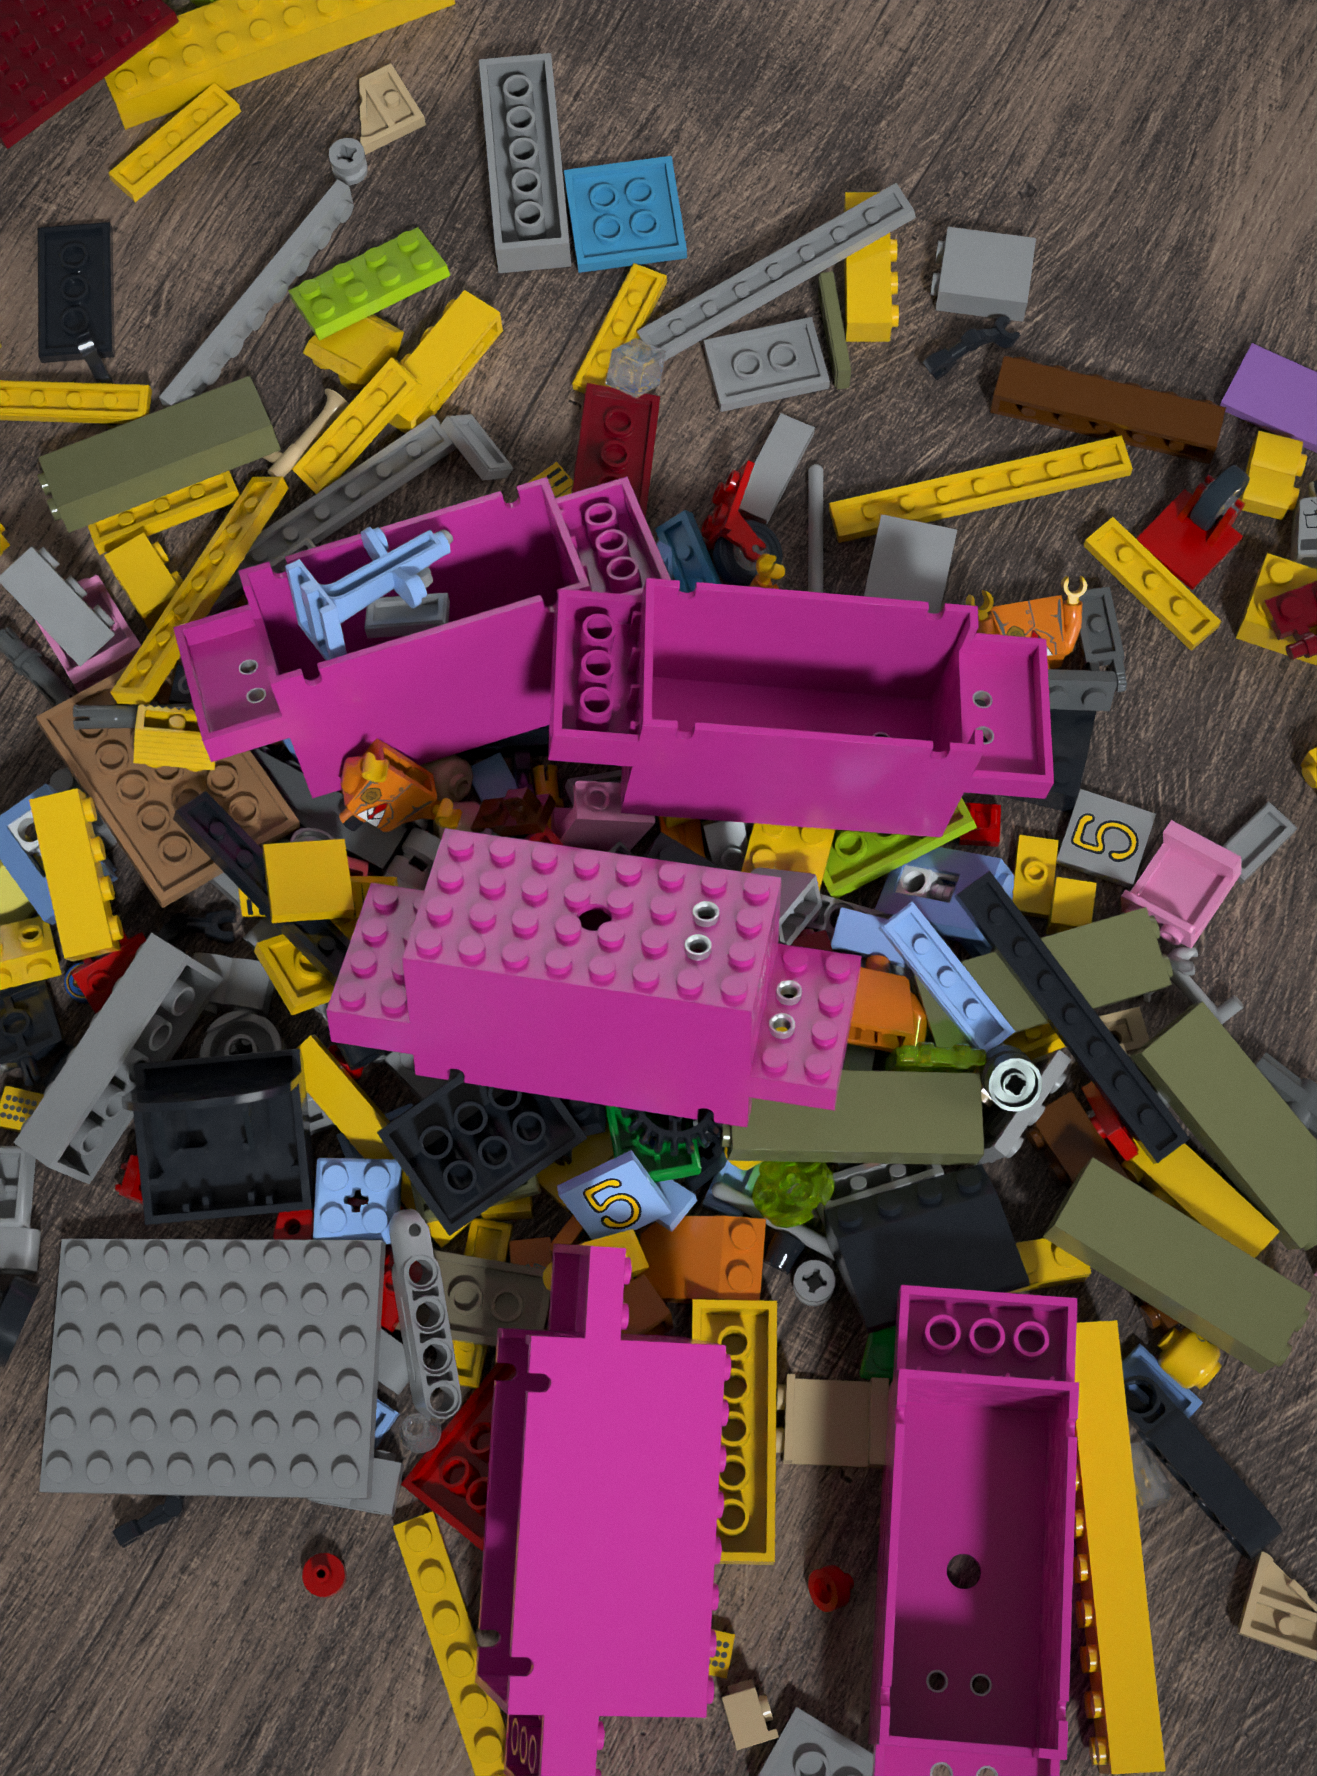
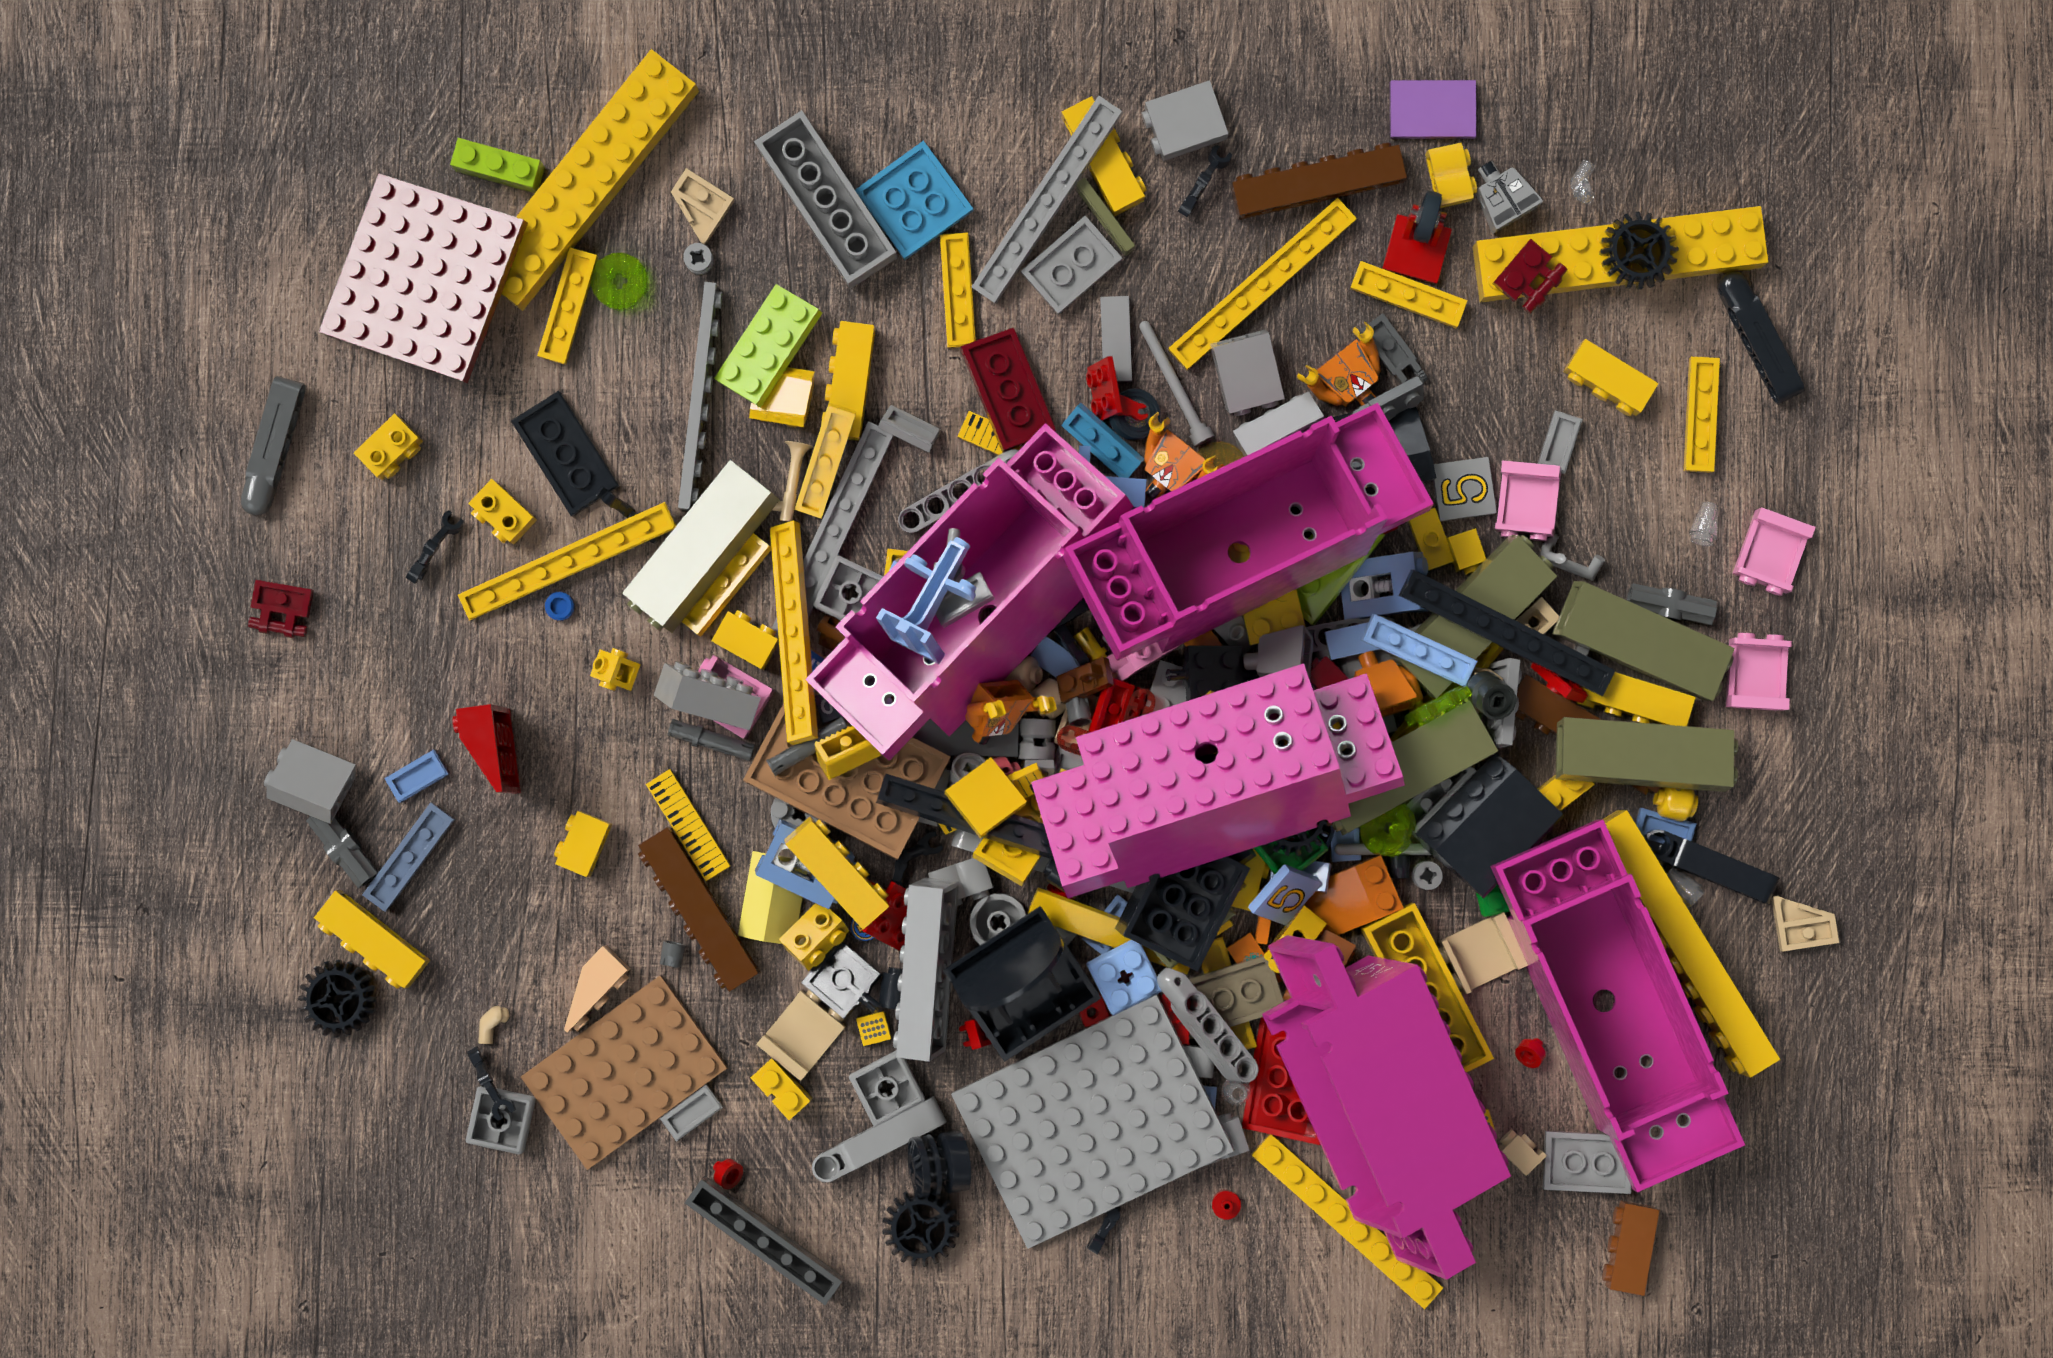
camera: 25 degrees left, 15 degrees up
(243, 128) = (632, 291): none -> clear neon green plate
(635, 367) = (987, 317): clear brick -> none

